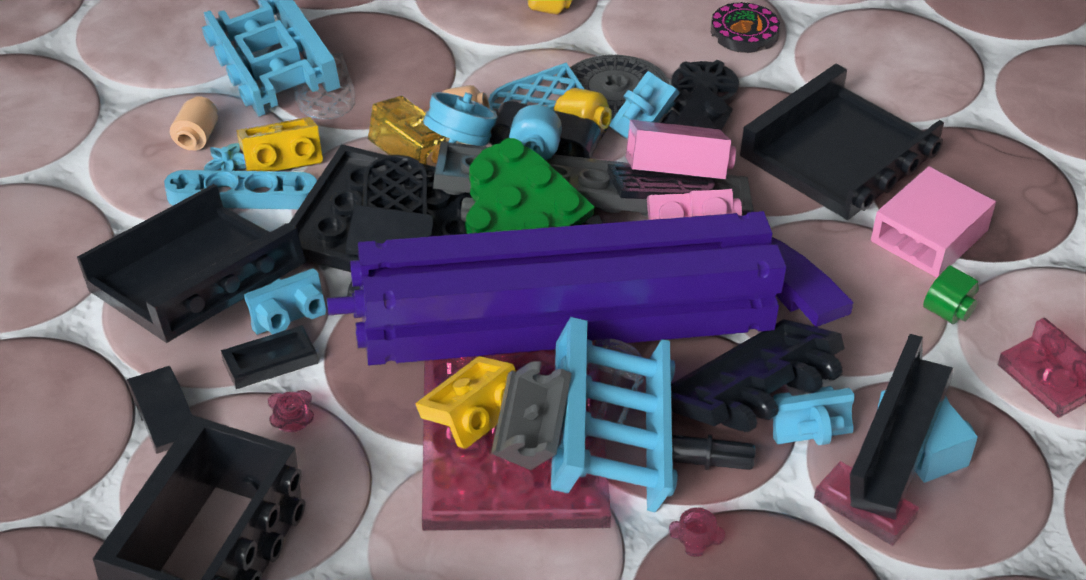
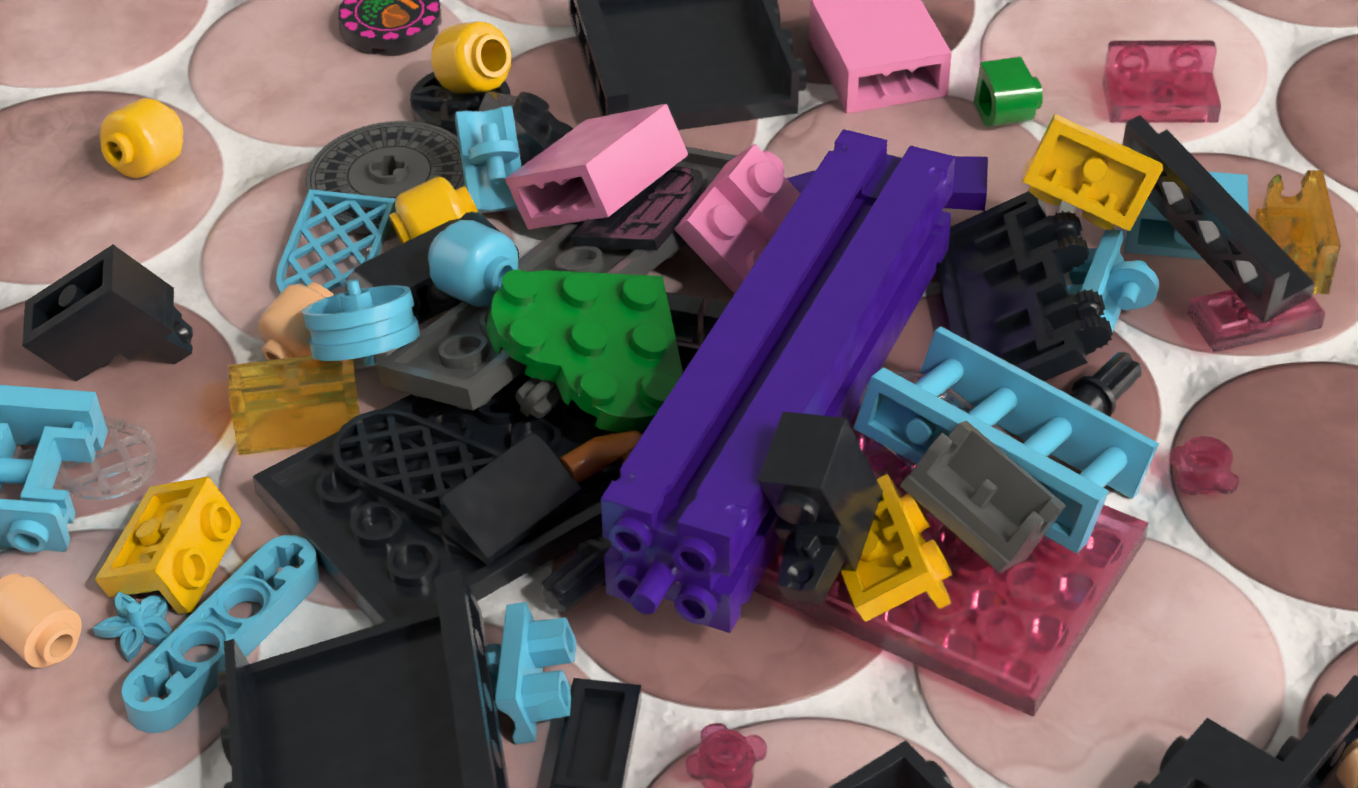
camera: 55 degrees left, 0 degrees up
(400, 40) = (103, 312): none -> black hinge
(453, 337) = (821, 500): none -> black hinge
(718, 75) = (471, 57): none -> yellow head
(856, 344) = (1090, 174): none -> yellow bracket
(967, 499) = (1303, 227): none -> clear yellow hinge

